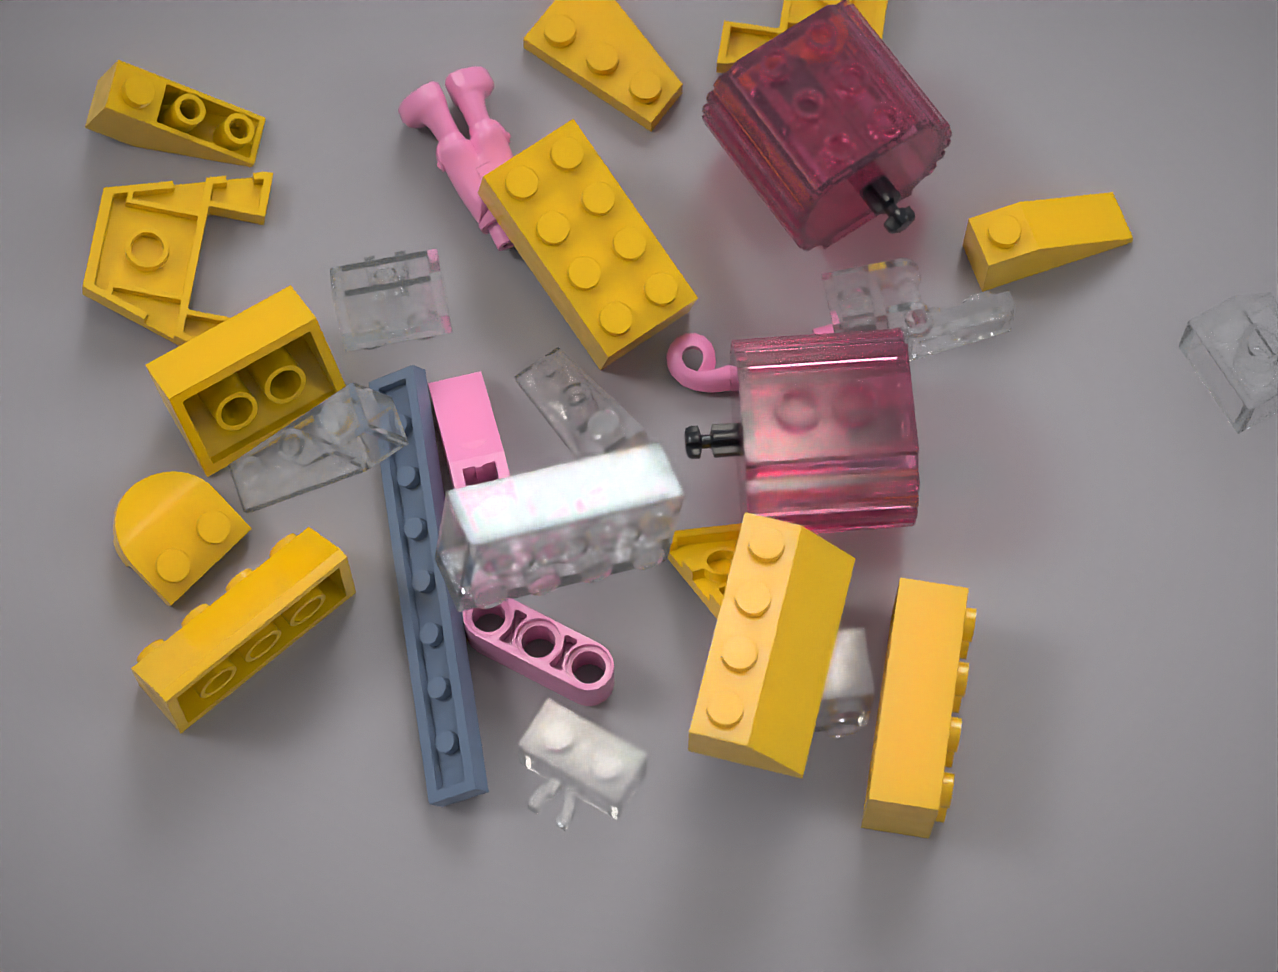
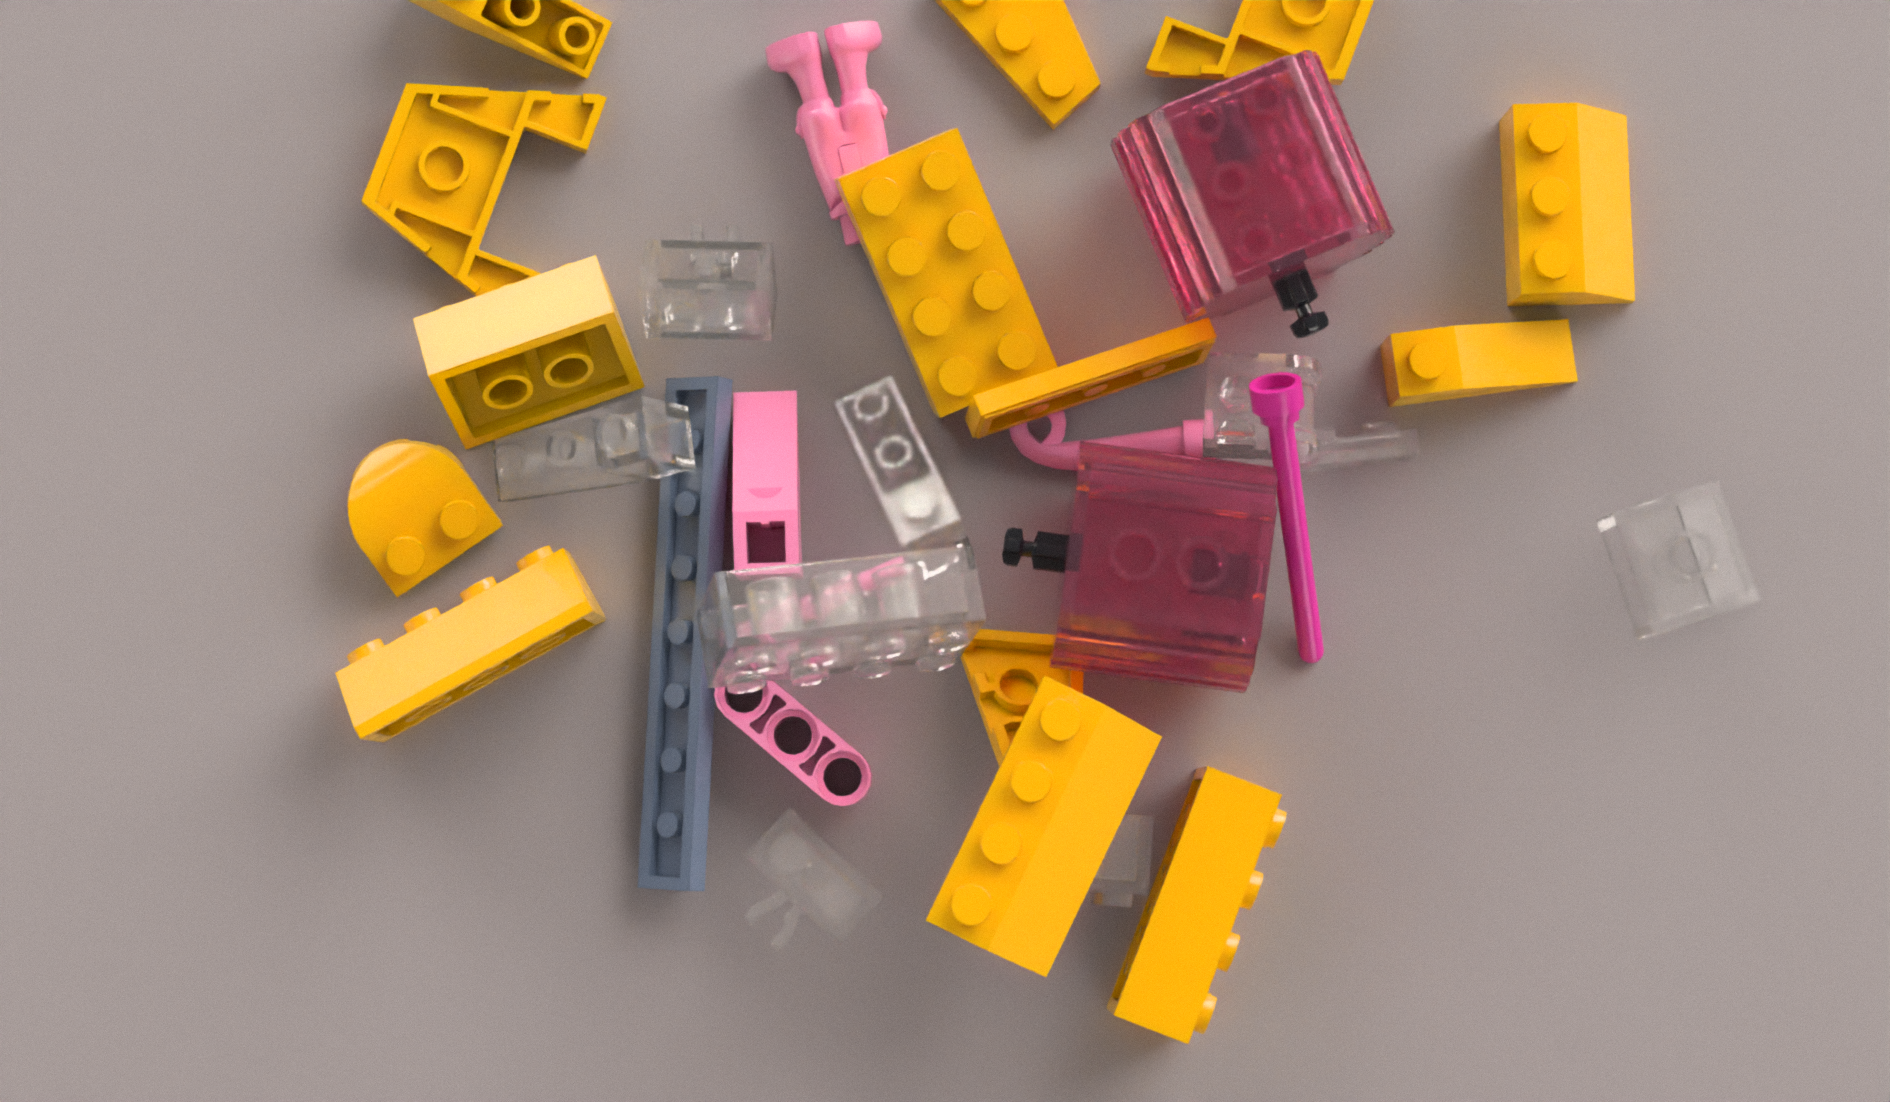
camera: 10 degrees right, 15 degrees up
(726, 305) = (1090, 378): none -> yellow tile
(889, 278) = (1278, 402): none -> dark pink piece
(1086, 103) = (1566, 205): none -> yellow slope

